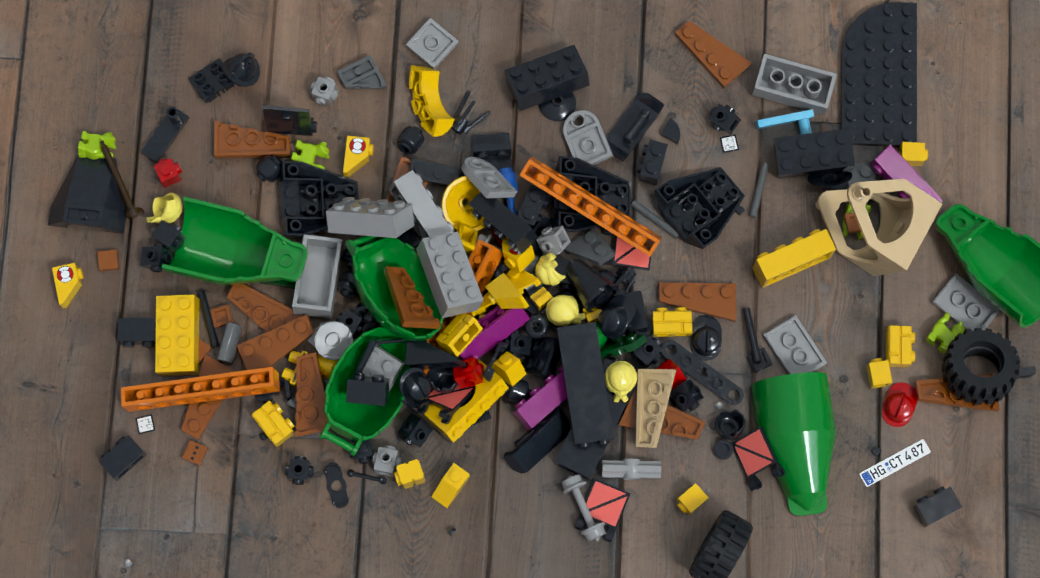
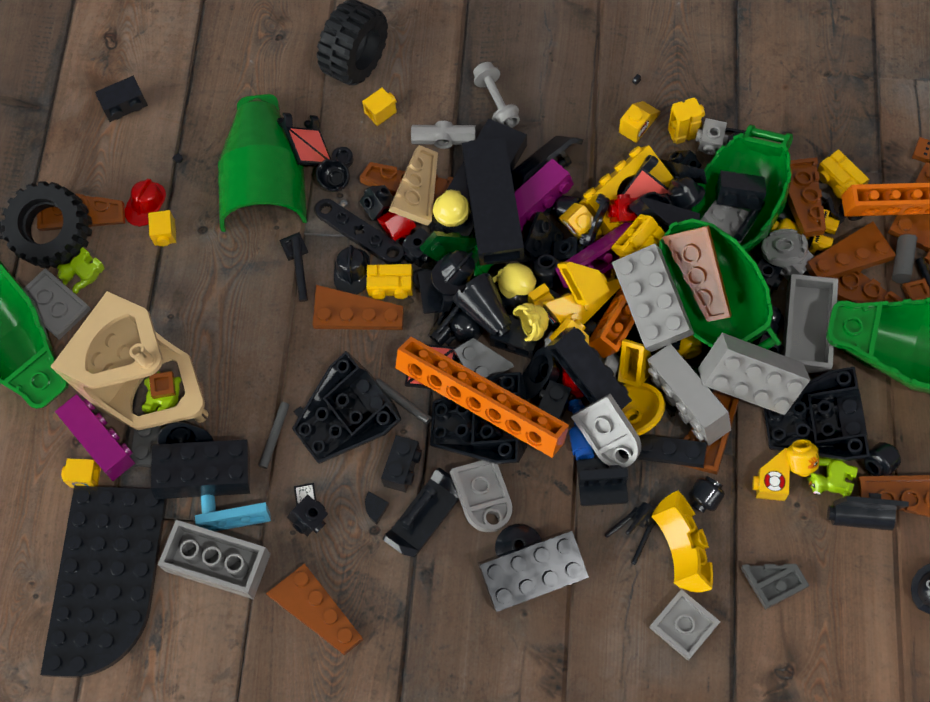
camera: 170 degrees left, 10 degrees down
(303, 476) = (808, 129): black brick -> none
(327, 96) = (818, 563): light grey brick -> none
(333, 164) = (803, 457): none -> yellow head
(334, 473) = (760, 109): black piece -> none
(553, 240) = (526, 358): light grey brick -> none
(605, 505) = (472, 103): coral flag -> none
(794, 257) = (240, 344): yellow brick -> none
(794, 347) = (252, 258): light grey tile -> none
(895, 462) = (159, 148): white sticker -> none
(899, 346) = (134, 256): yellow brick -> none

